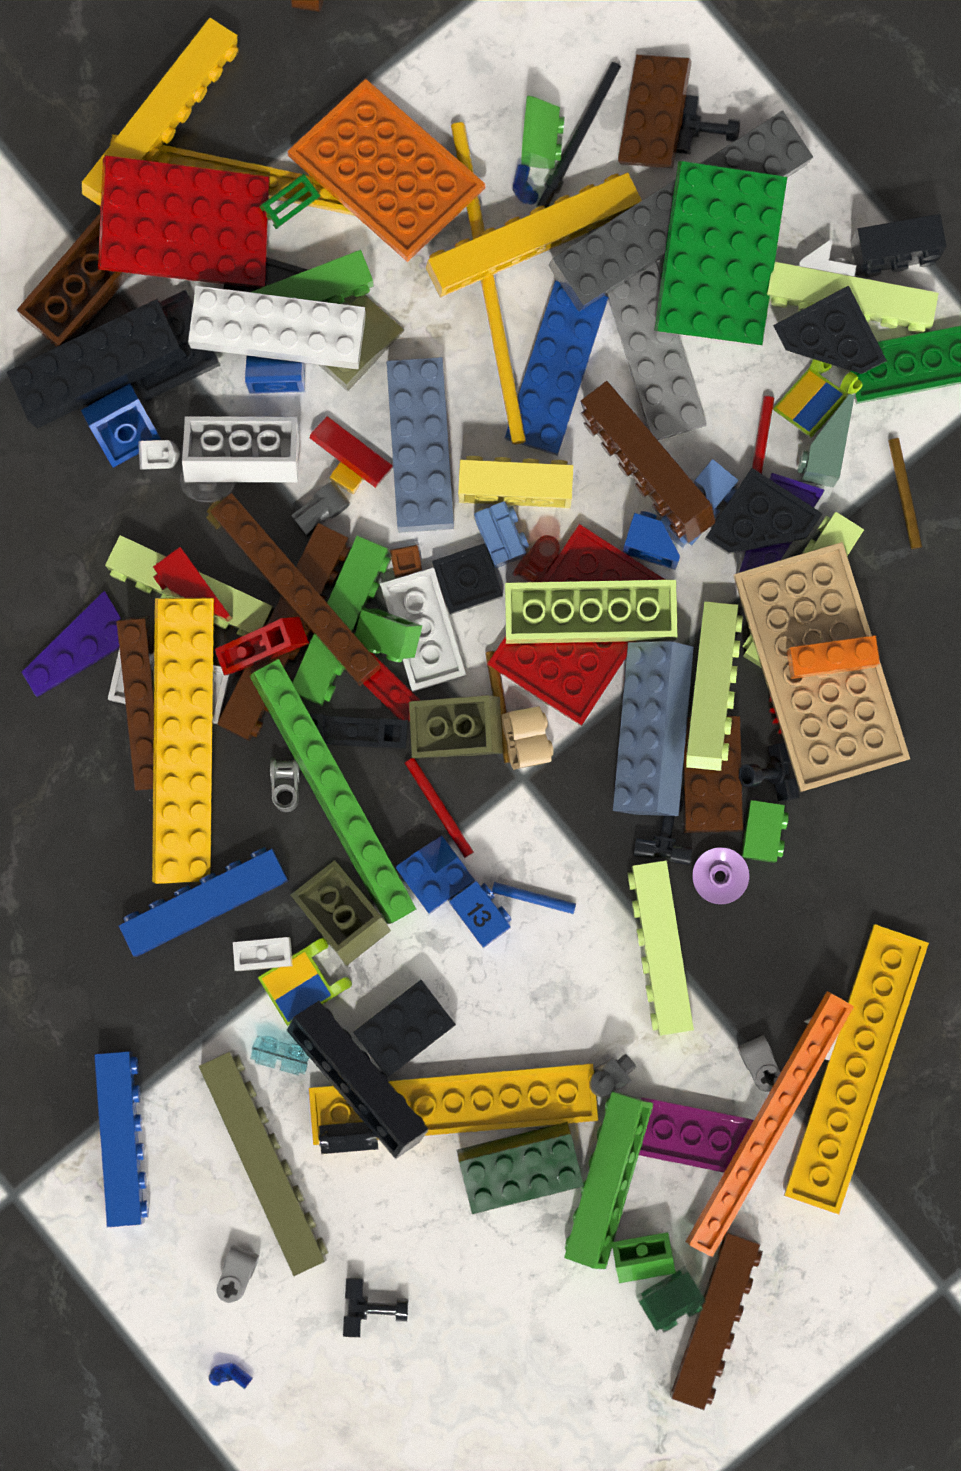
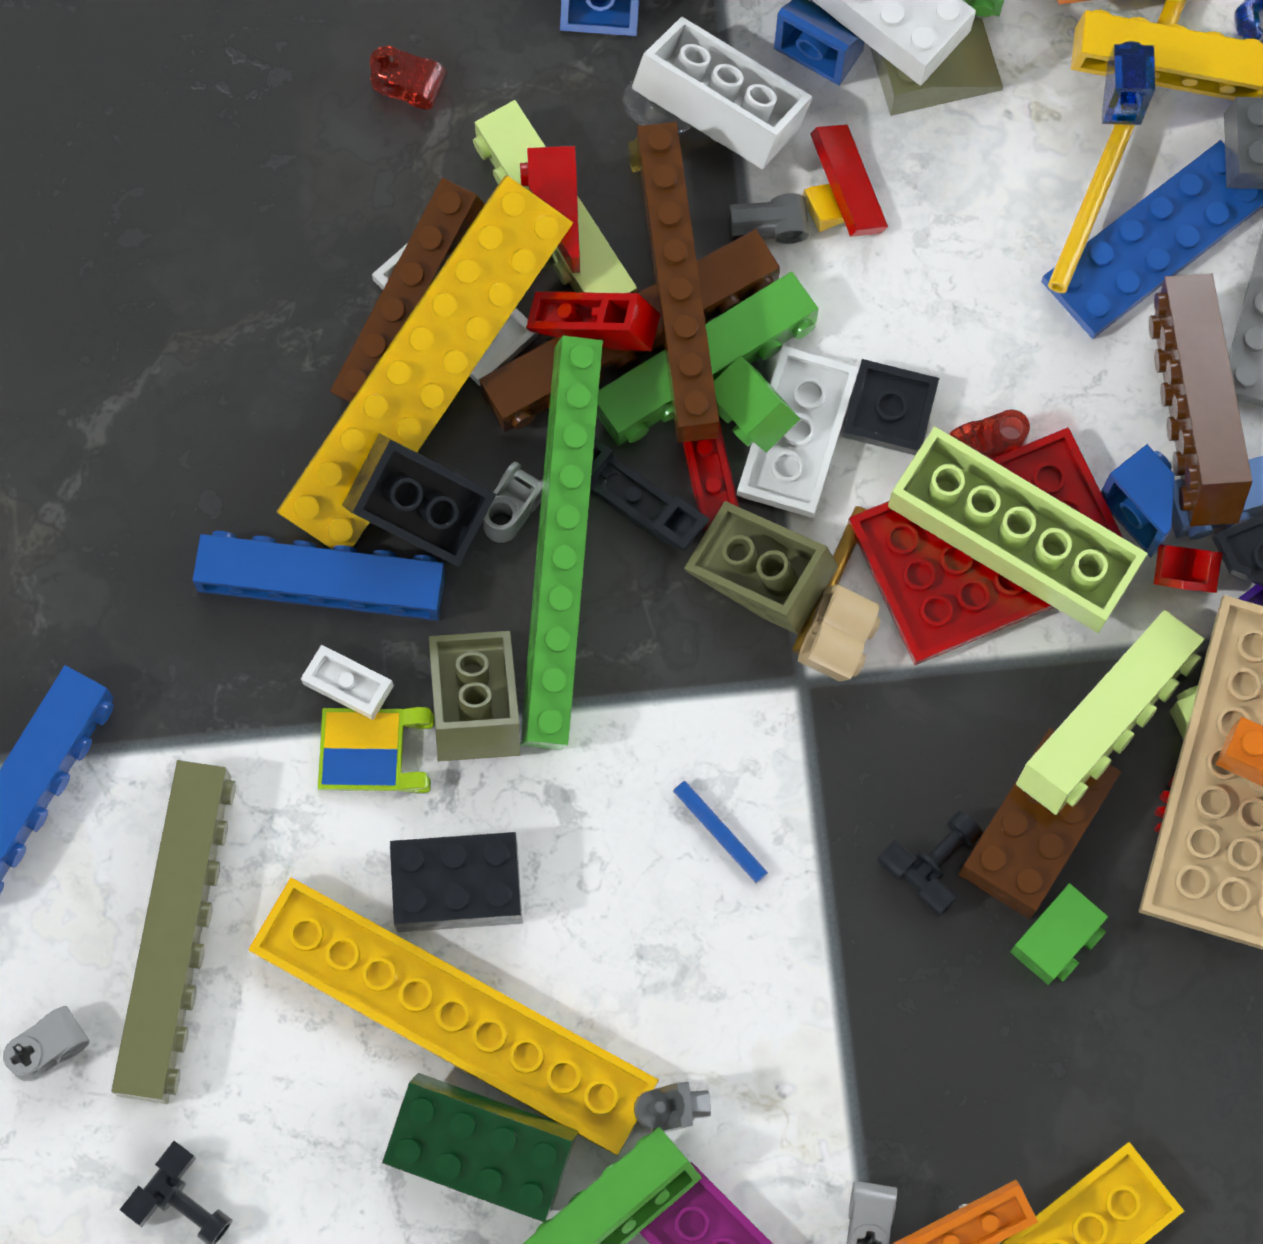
camera: 30 degrees right, 10 degrees down
(45, 559) = (407, 77): none -> clear red piece
(77, 647) = (372, 199): dark purple wing -> none
(158, 454) = (620, 44): white plate -> none
(233, 822) = (418, 500): none -> black brick
(268, 1049) = (275, 802): clear light blue hinge -> none
(346, 1138) = (296, 966): black hinge -> none
(357, 1079) = (355, 902): black brick -> none
(405, 561) = (831, 341): dark orange tile -> none
(420, 445) = (935, 221): sand blue brick -> none
(435, 874) = (618, 723): blue slope -> none
(439, 807) = (677, 651): red bar -> none
(480, 913) = (641, 803): blue brick -> none
(482, 289) = (1128, 83): none -> clear blue slope
(500, 534) = (965, 379): medium blue brick -> none
(515, 482) = (1022, 329): light yellow brick -> none
(653, 728) = (1002, 718): sand blue brick -> none
(662, 948) = (839, 994): yellowish green brick -> none
(702, 567) = (1187, 568): none -> red panel
(735, 873) = (986, 939): lavender dish -> none
(776, 772) = (1122, 872): black bar -> none

